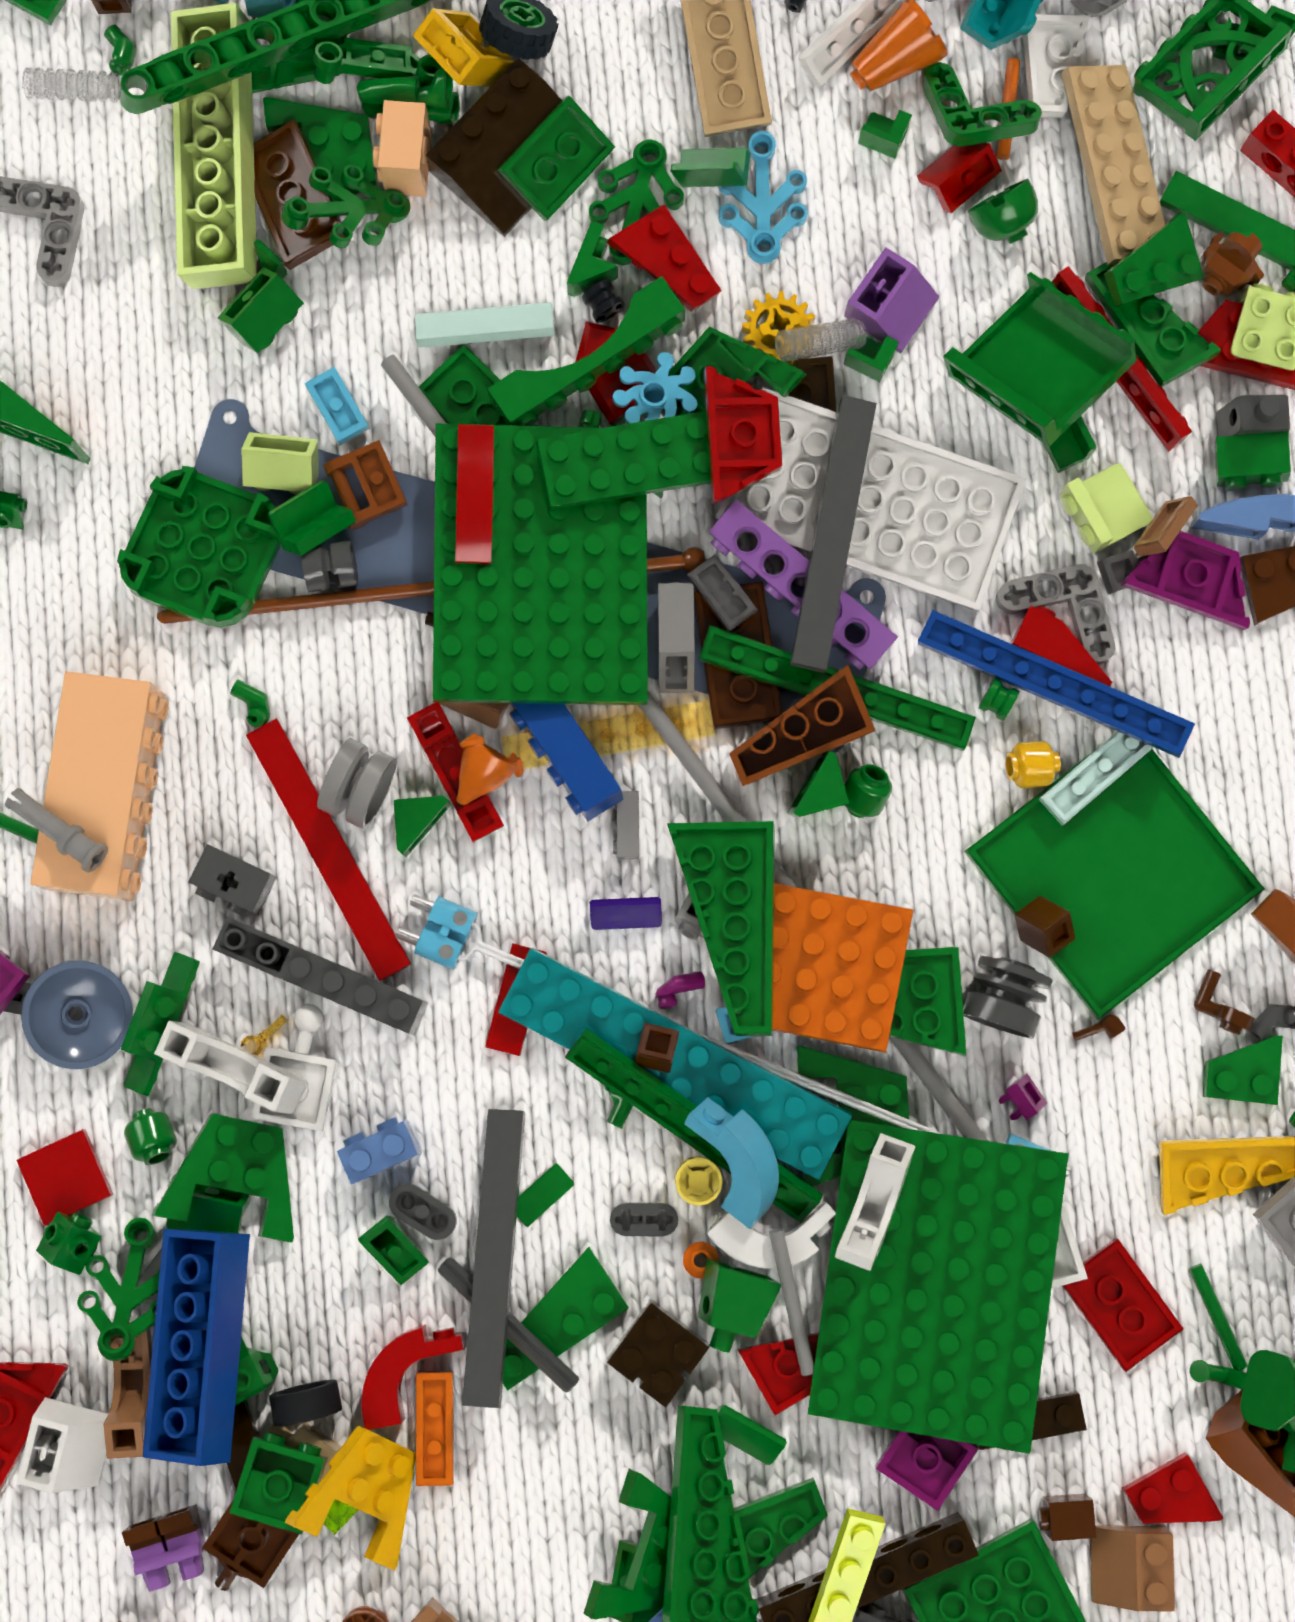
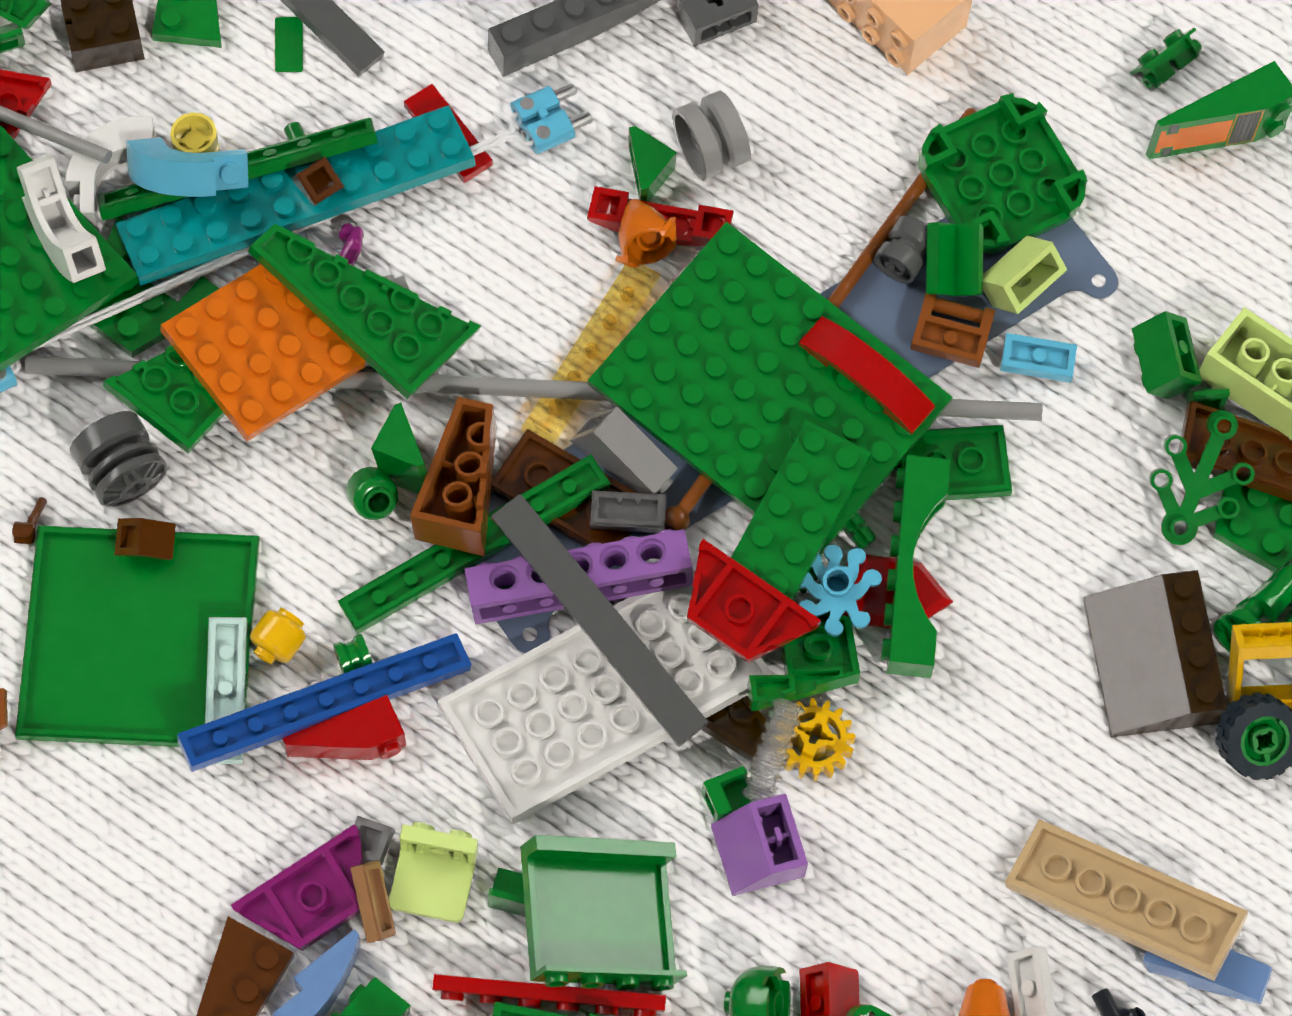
camera: 125 degrees right, 15 degrees down
(256, 702) = (842, 127): green arm -> none
(329, 850) = (674, 90): red tile -> none
(403, 146) = (1223, 559): light nougat brick -> none
(484, 325) = (1014, 518): light aqua tile -> none
(556, 158) = (1115, 681): green tile -> none
(569, 756) = (592, 298): blue brick -> none
(588, 267) = (999, 632): green slope -> none
(603, 301) = (957, 622): black wheel -> none
(625, 913) = (443, 256): dark purple slope -> none
(627, 826) = (508, 308): light grey piece -> none
(638, 194) = (1027, 726): green plant -> none
(644, 1228) = (200, 90): dark grey beam -> none
(663, 250) = (952, 699): red wing -> none
(690, 1253) = (135, 98): orange plate -> none
(712, 167) = (1002, 798): green panel -> none
(735, 1302) = (85, 98): green torso -> none
(764, 205) = (937, 820): medium azure plant -> none
(884, 133) = (918, 972): green panel -> none
(1025, 1096) = (32, 421): magenta tile -> none
(1076, 600) = (381, 791): light grey beam -> none

